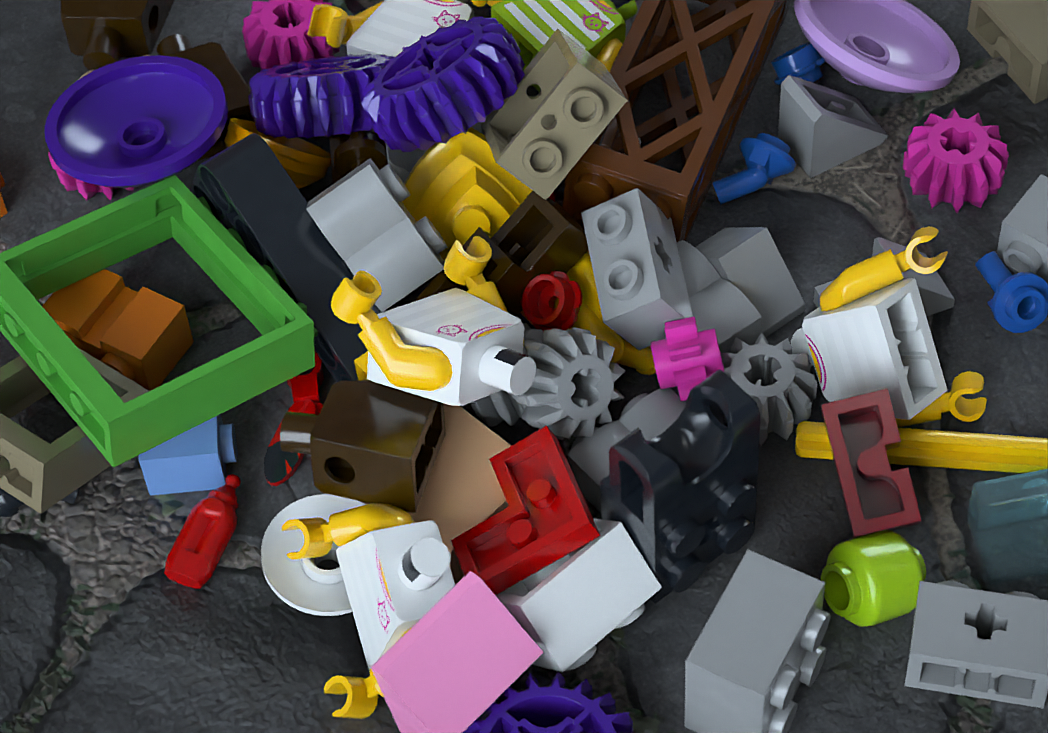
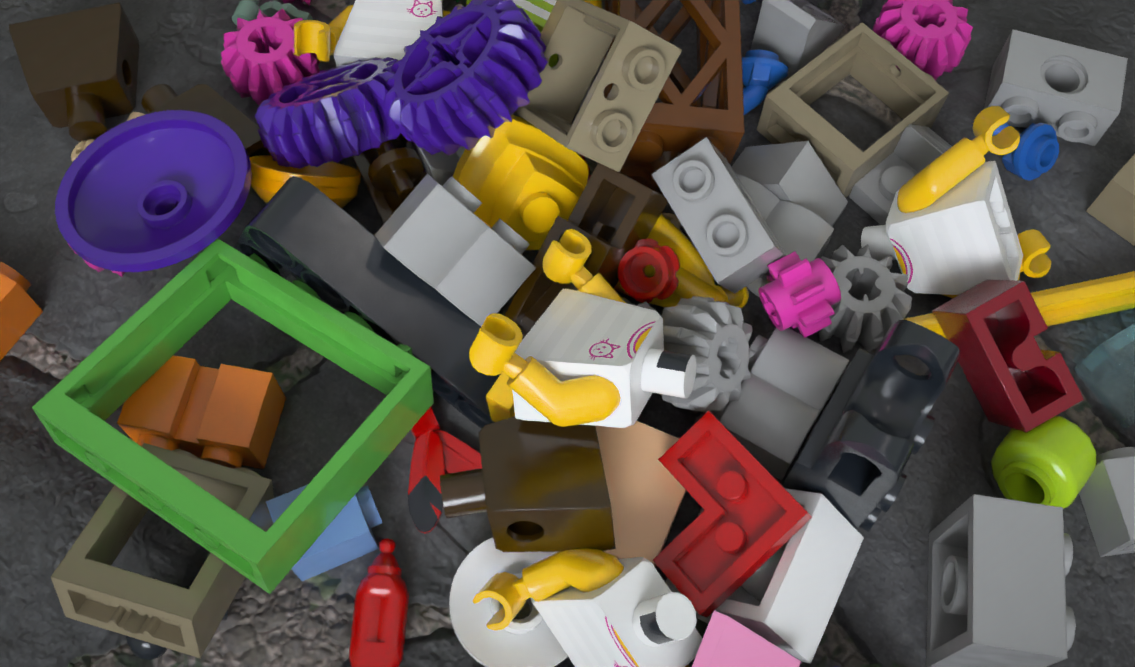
camera: 25 degrees left, 10 degrees up
(868, 161) = (873, 64): none -> dark tan window

